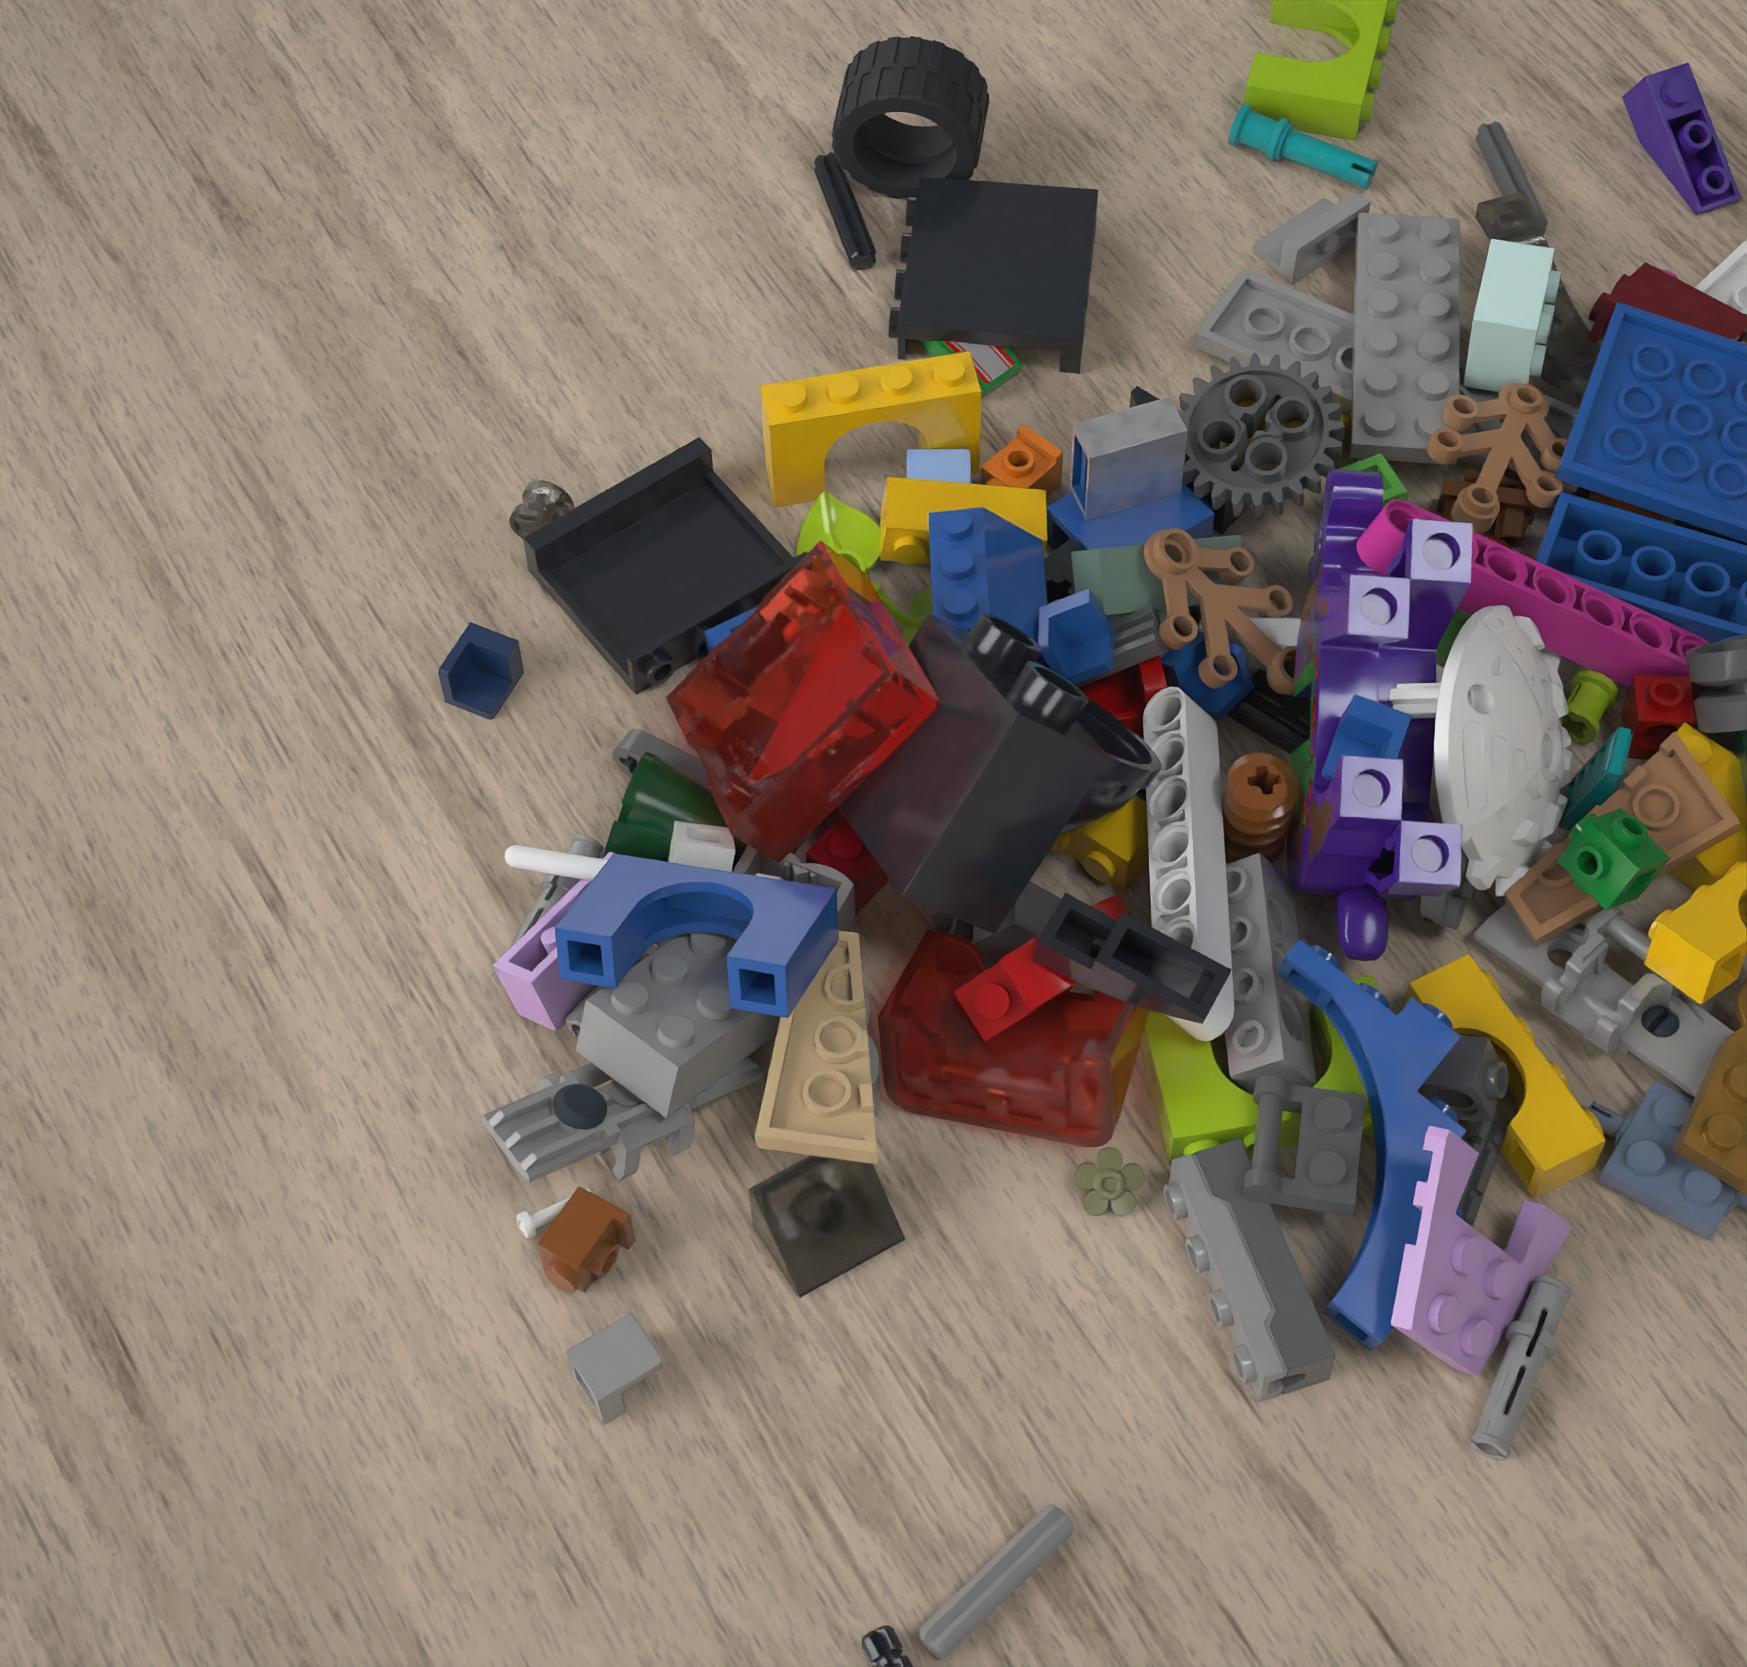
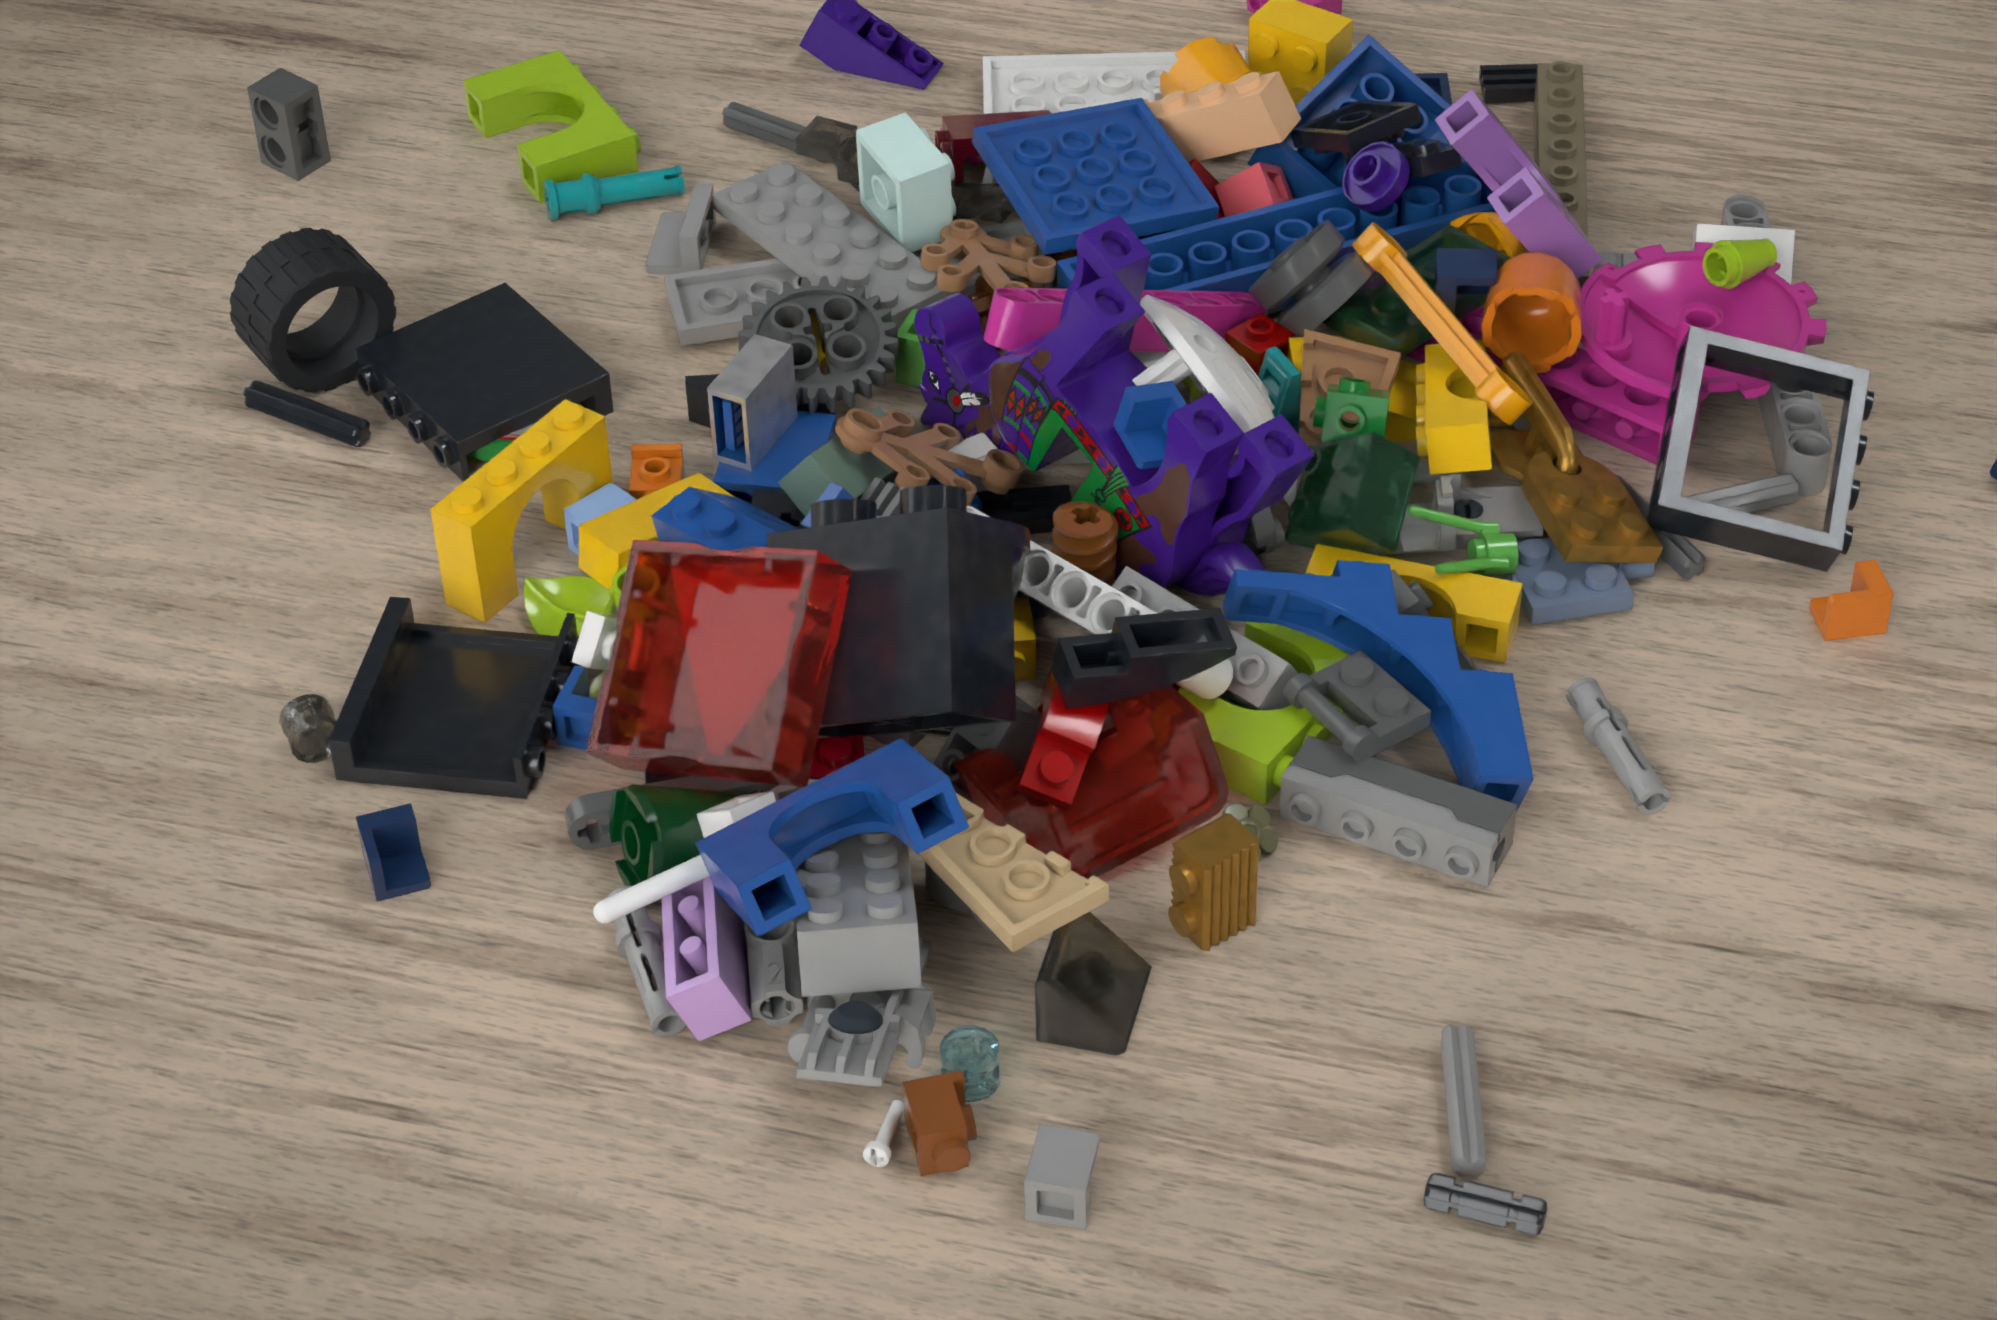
camera: 45 degrees left, 15 degrees down
(670, 1222) = (977, 1055): none -> clear light blue wheel
(1002, 1211) = (1214, 882): none -> pearl gold brick
(1455, 1283) = (1532, 691): lavender wing -> none
(1536, 936) = (1353, 495): none -> clear green slope
(1619, 1085) = (1487, 555): none -> bright green plant

